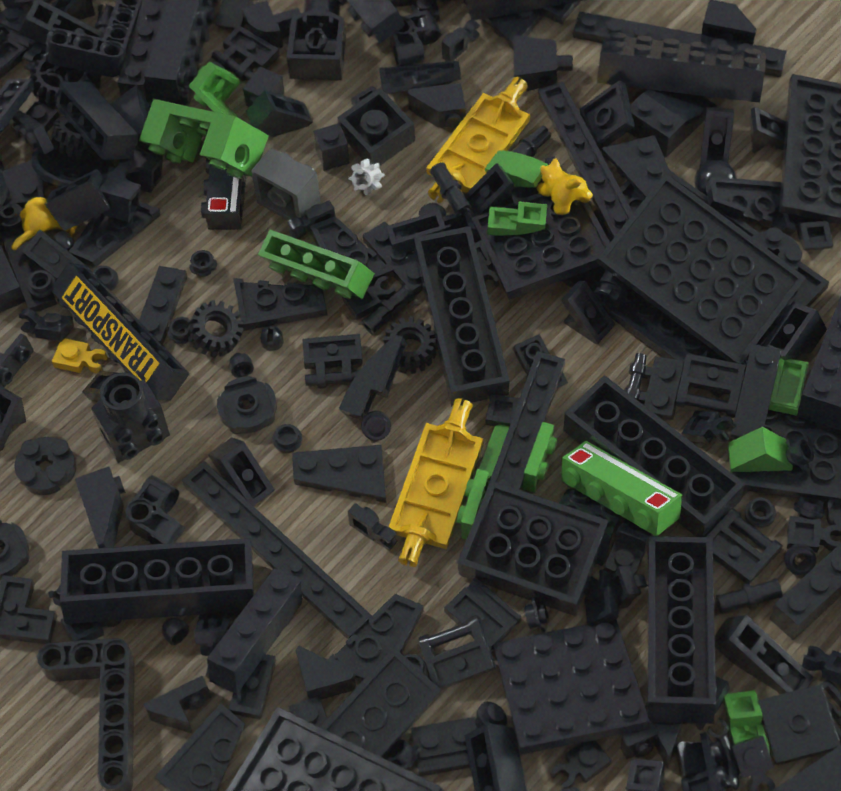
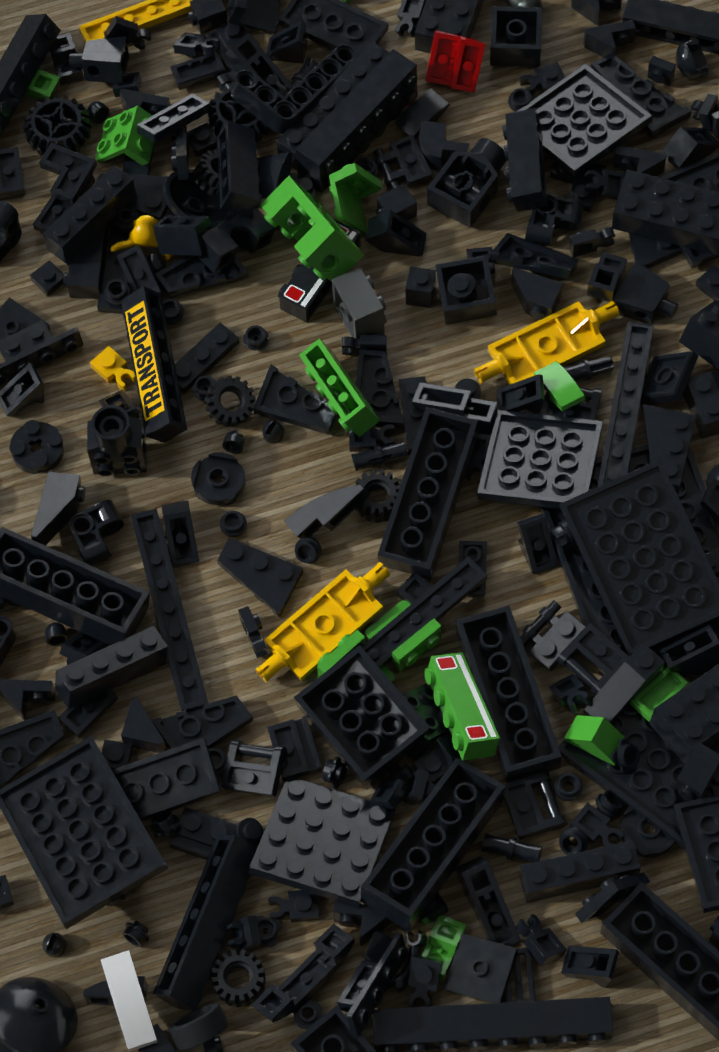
camera: 30 degrees right, 5 degrees up
(50, 326) = (105, 332): black plate -> none
(332, 352) = (309, 468): black plate -> none
(364, 182) = (432, 328): white gear -> none
(450, 189) = (489, 377): black pin -> none
(496, 62) = (606, 277): none -> black brick
(524, 220) = (529, 434): bright green slope -> none
(562, 187) = (582, 423): yellow animal -> none

